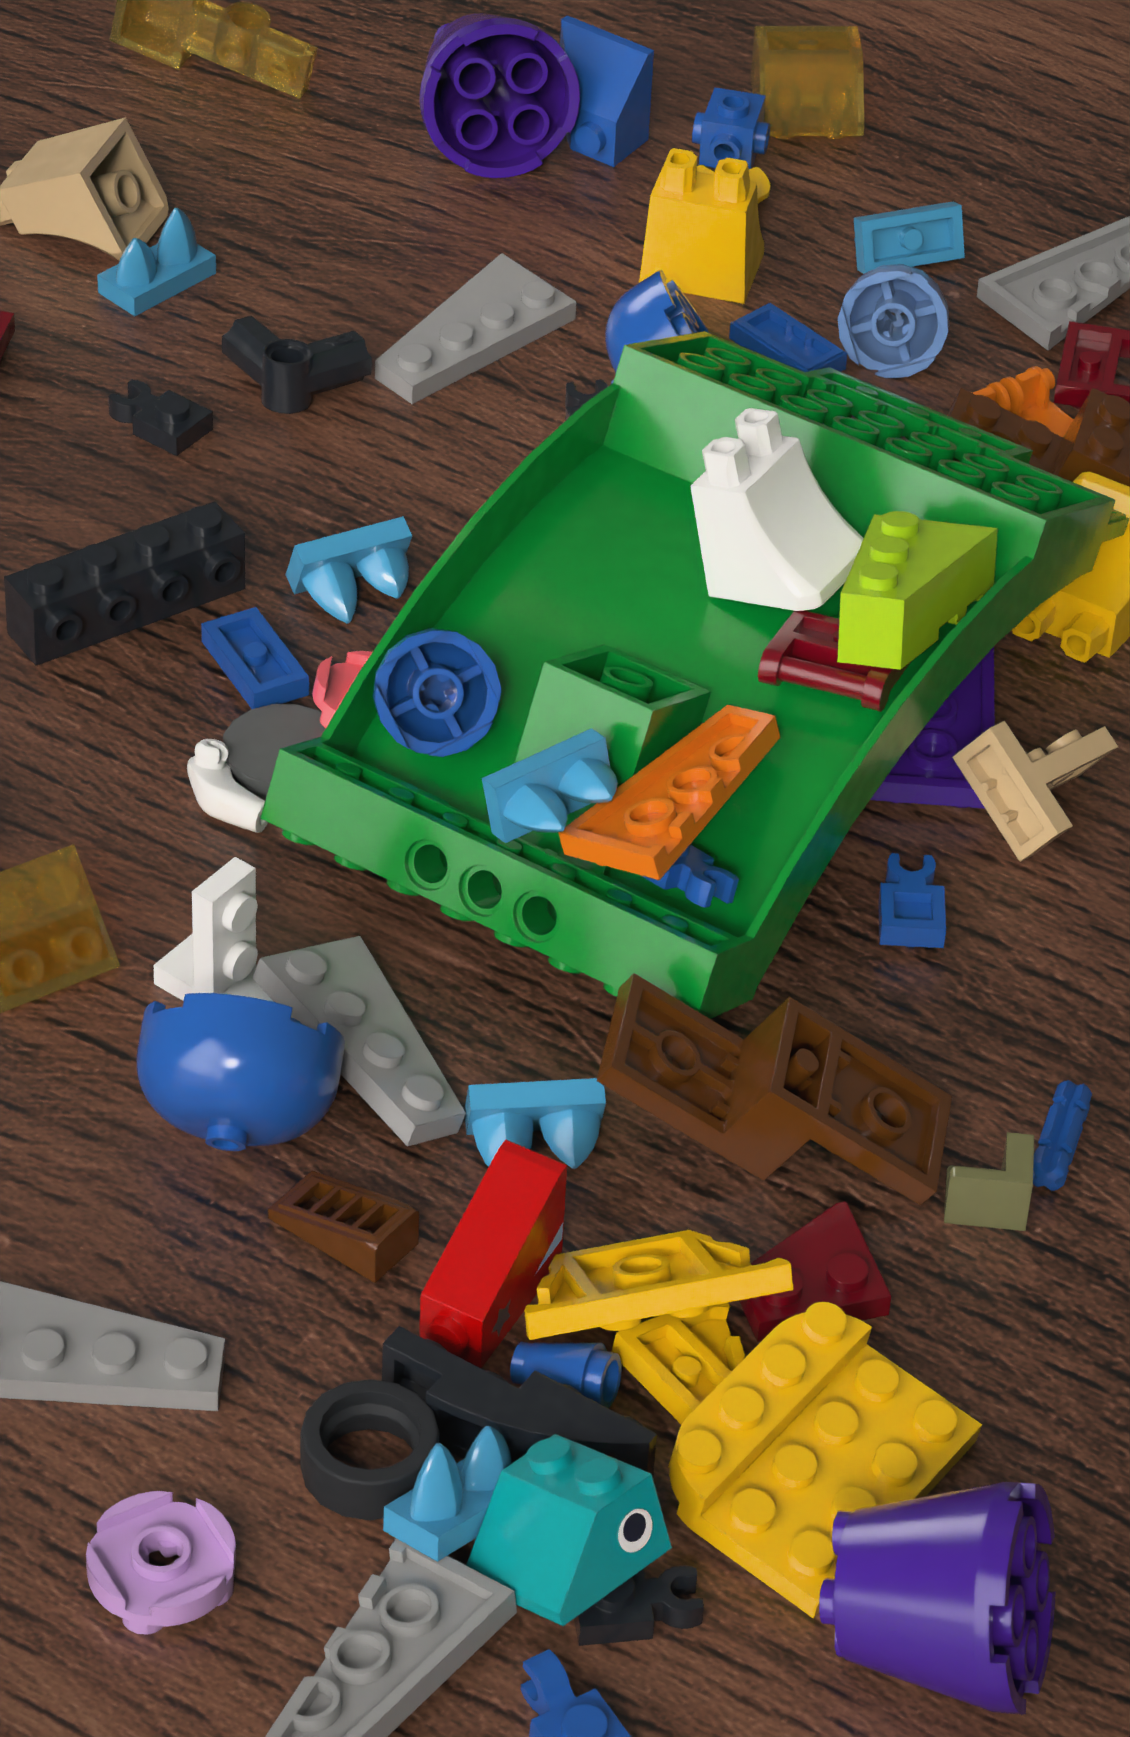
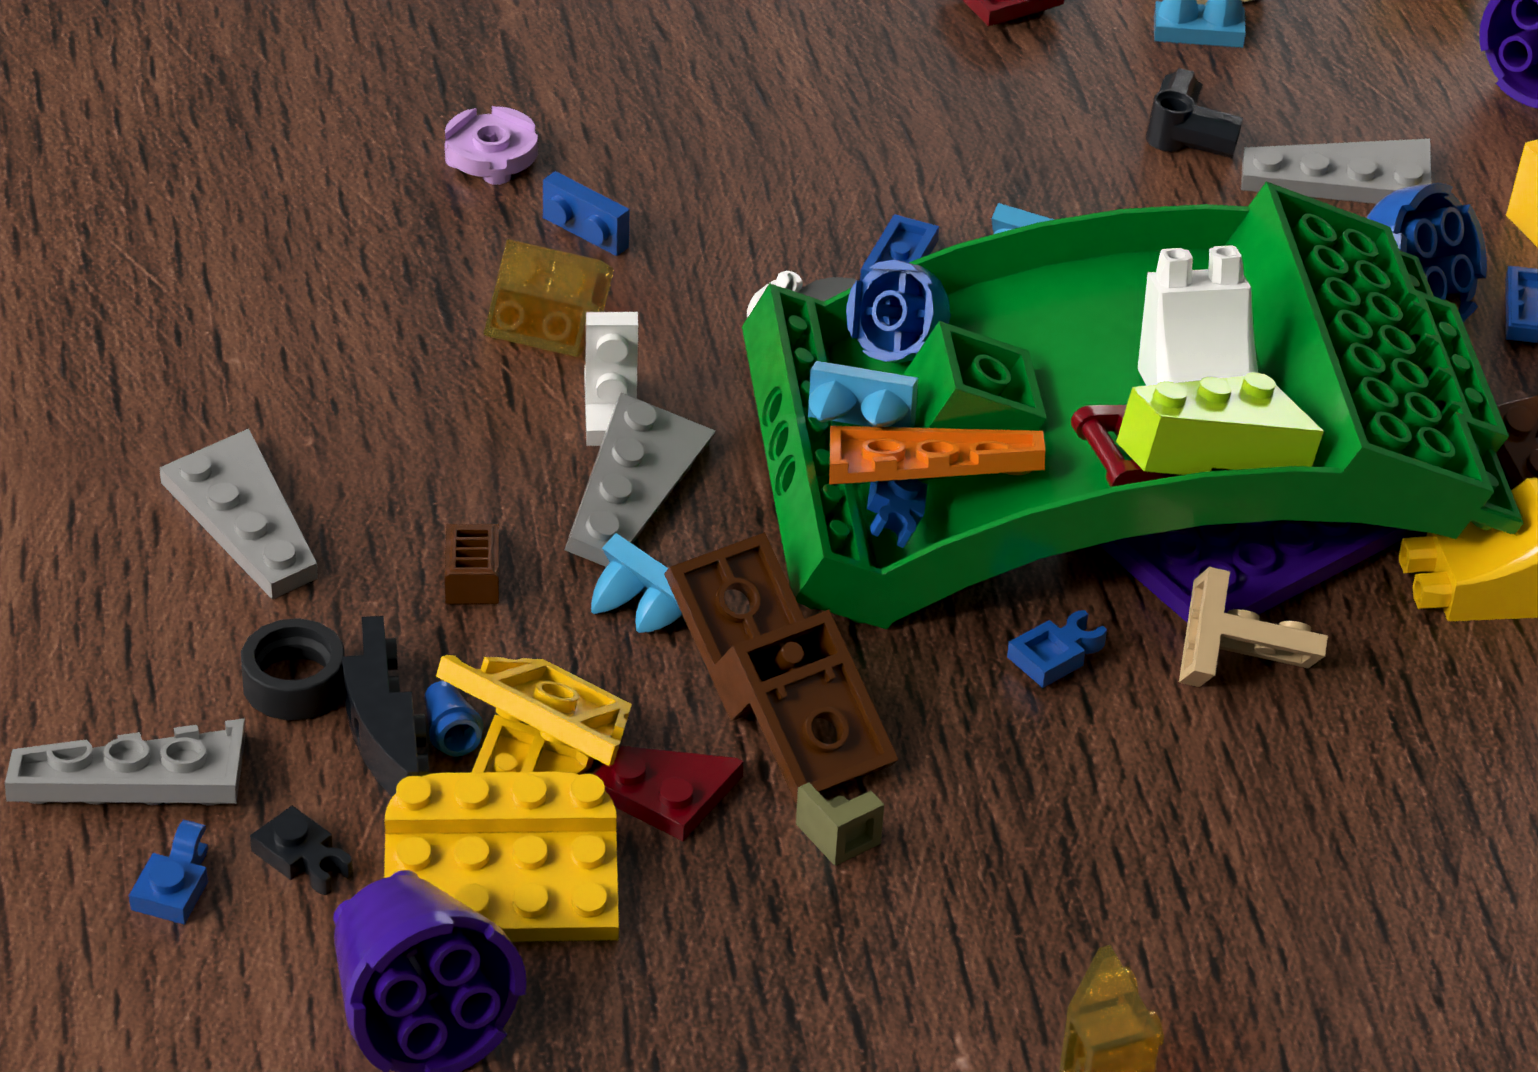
camera: 50 degrees right, 0 degrees up
(124, 583) = (888, 166): black brick -> none
(161, 1595) = (122, 658): lavender plate -> none
(164, 420) = (1071, 103): black plate -> none
(237, 1069) = (509, 438): blue cylinder -> none
(449, 1497) = (273, 724): dark azure tile -> none
(496, 1254) = (499, 617): red slope -> none
(568, 1528) = (305, 778): teal slope -> none
(1060, 1134) = (932, 831): blue axle -> none

